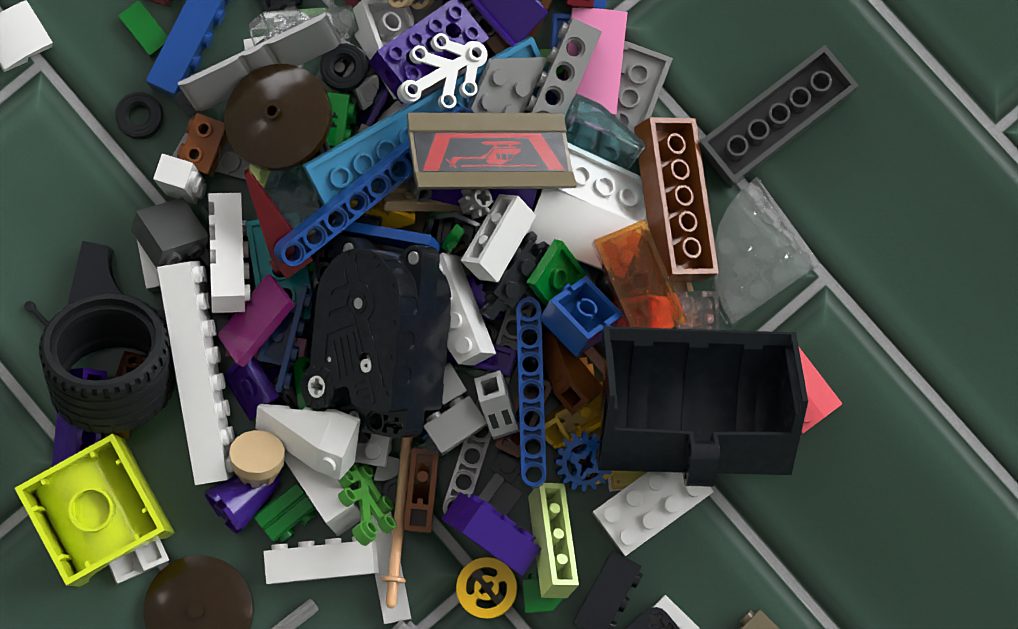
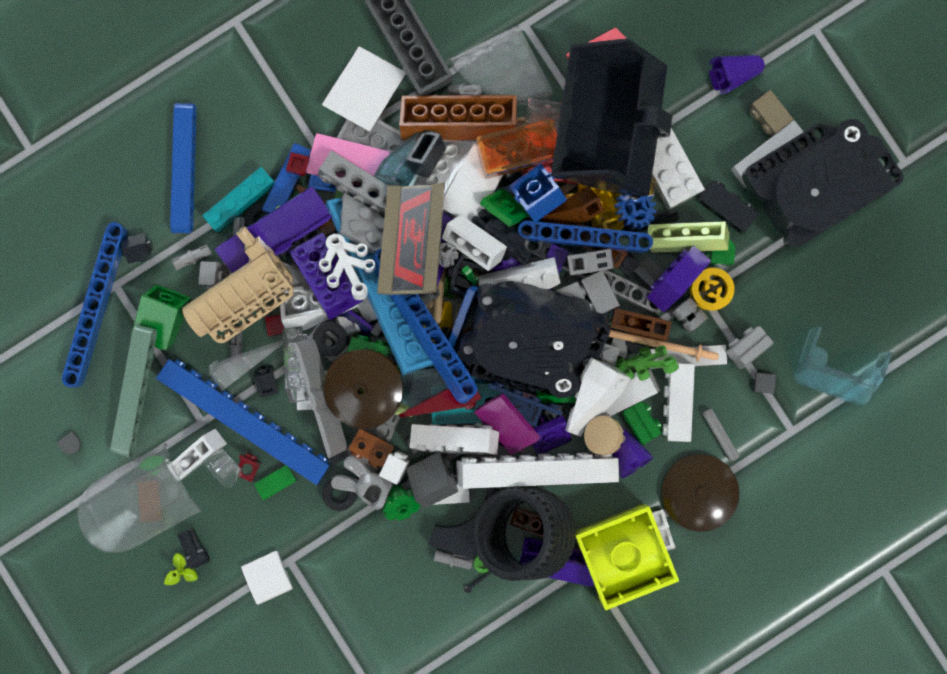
camera: 80 degrees left, 5 degrees up
(66, 277) = (453, 559): none -> light grey axle
(132, 193) = (399, 504): none -> green plant
(150, 145) = (368, 487): none -> light grey piece
(453, 553) = (686, 309): none -> light grey wheel
(575, 499) = (658, 219): none -> black axle
(616, 160) = (426, 153): none -> black piece
(700, 68) = (364, 88): none -> white sticker
(717, 202) = (464, 89): none -> light grey axle
(804, 580) = (733, 71): none -> dark purple cone

